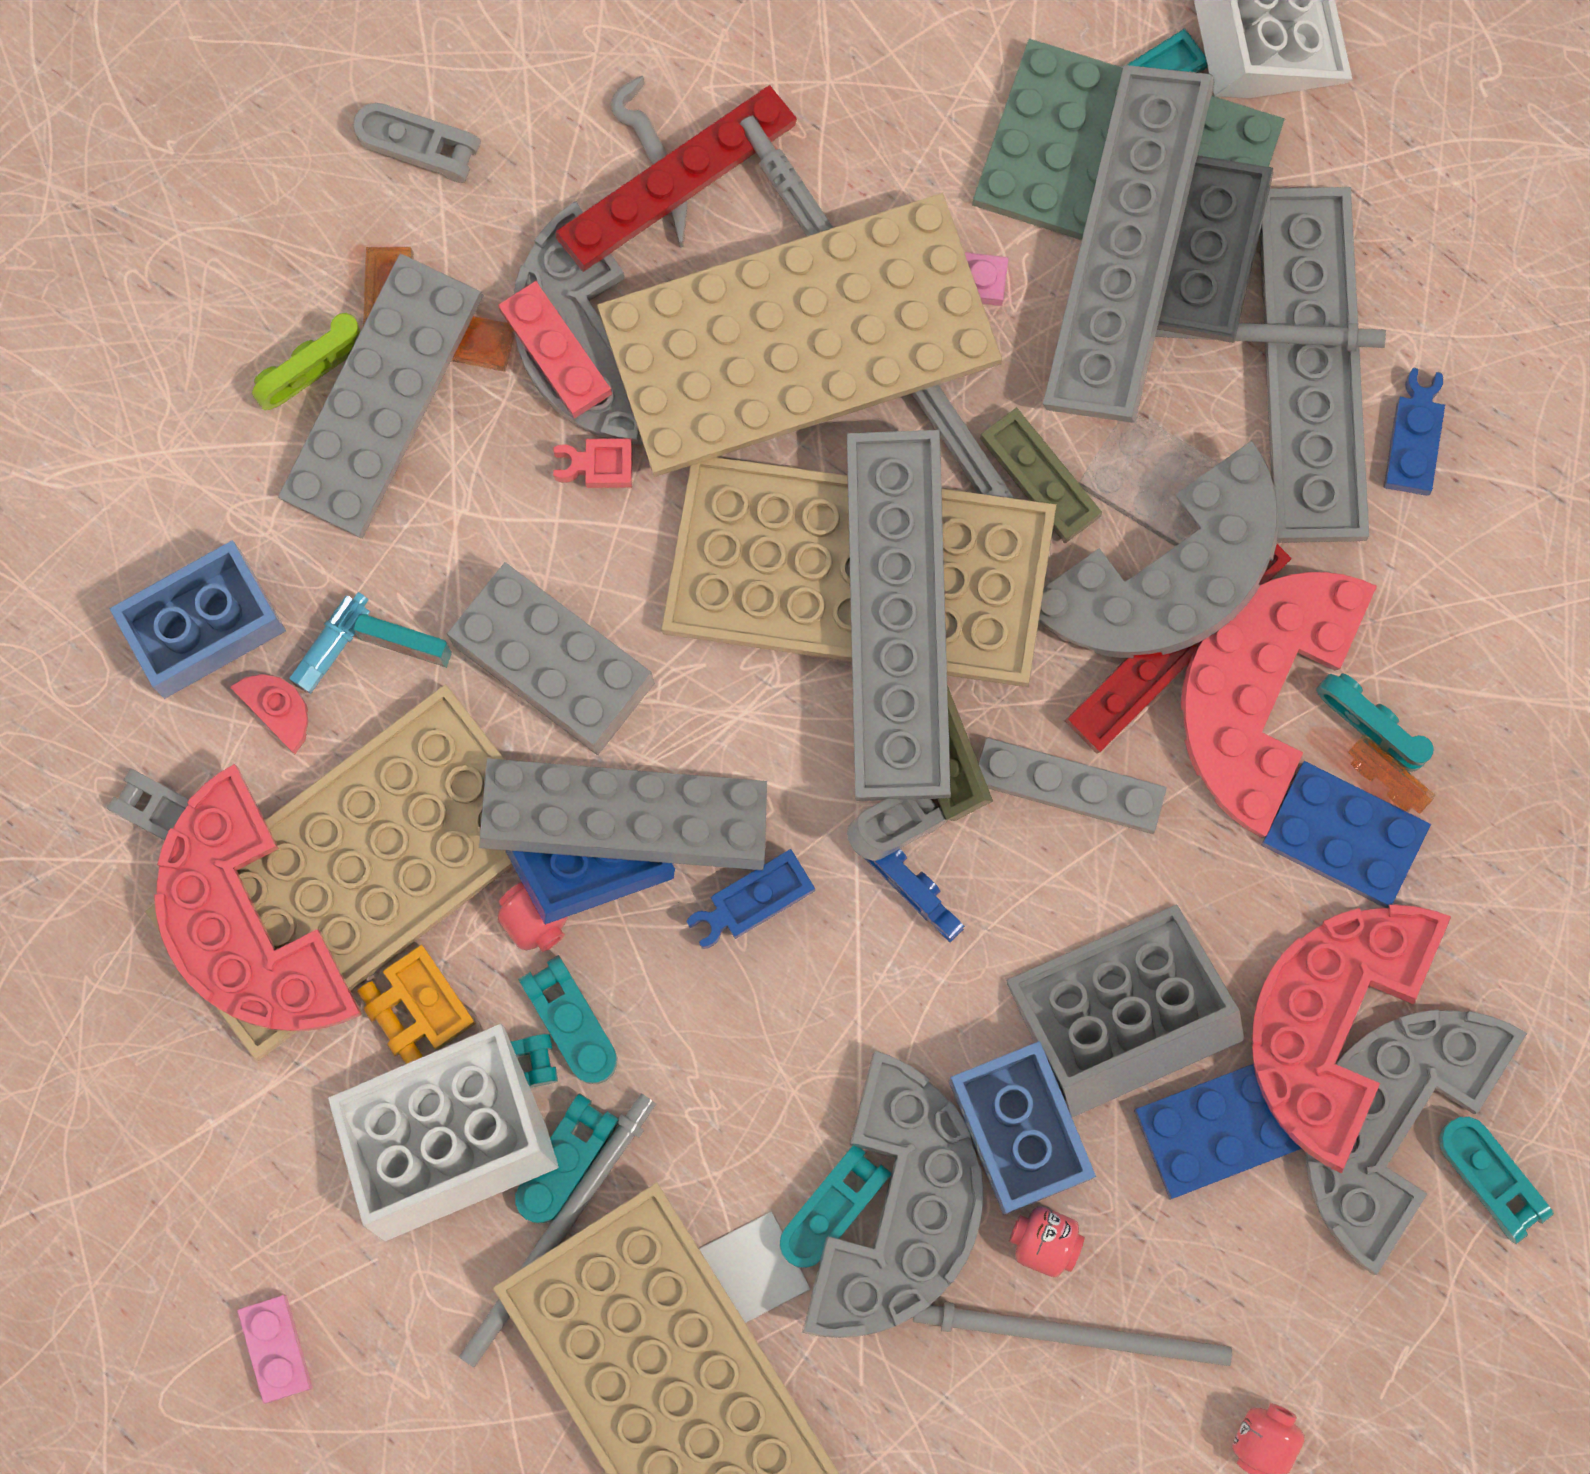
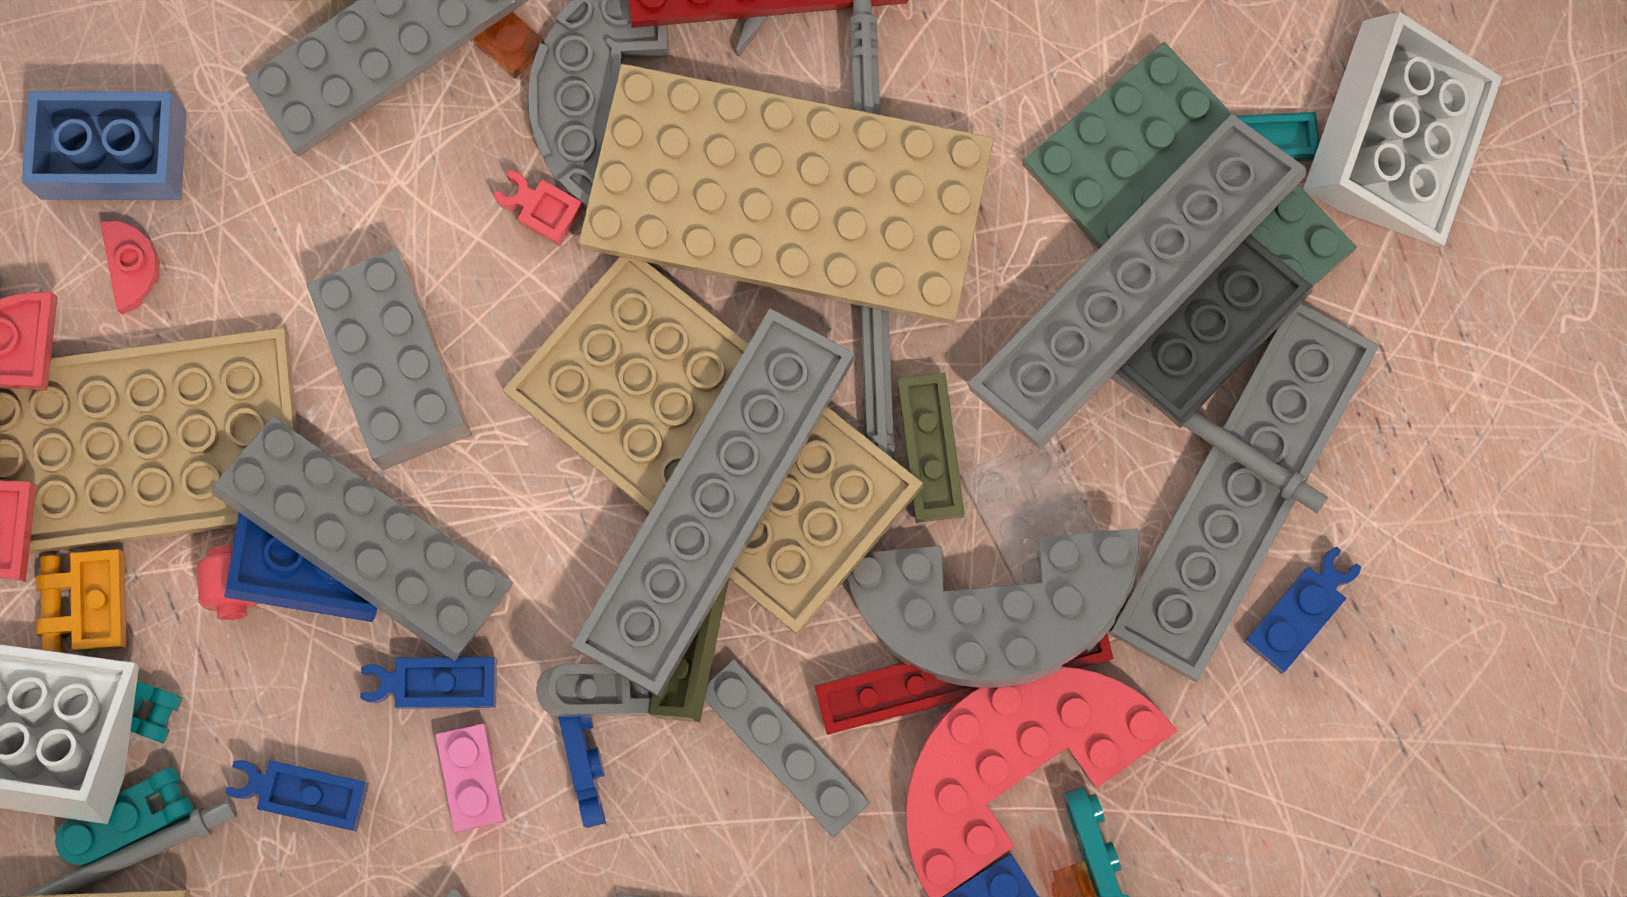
camera: 30 degrees right, 0 degrees up
(330, 642) = (210, 232): medium azure piece -> none
(402, 640) = (272, 267): teal tile -> none
(555, 349) = (562, 83): coral plate -> none
(572, 1023) = (208, 698): teal plate -> none
(702, 1051) = (304, 793): none -> blue plate
(829, 959) = (470, 778): none -> bright pink plate
(989, 276) = (993, 237): bright pink plate -> none

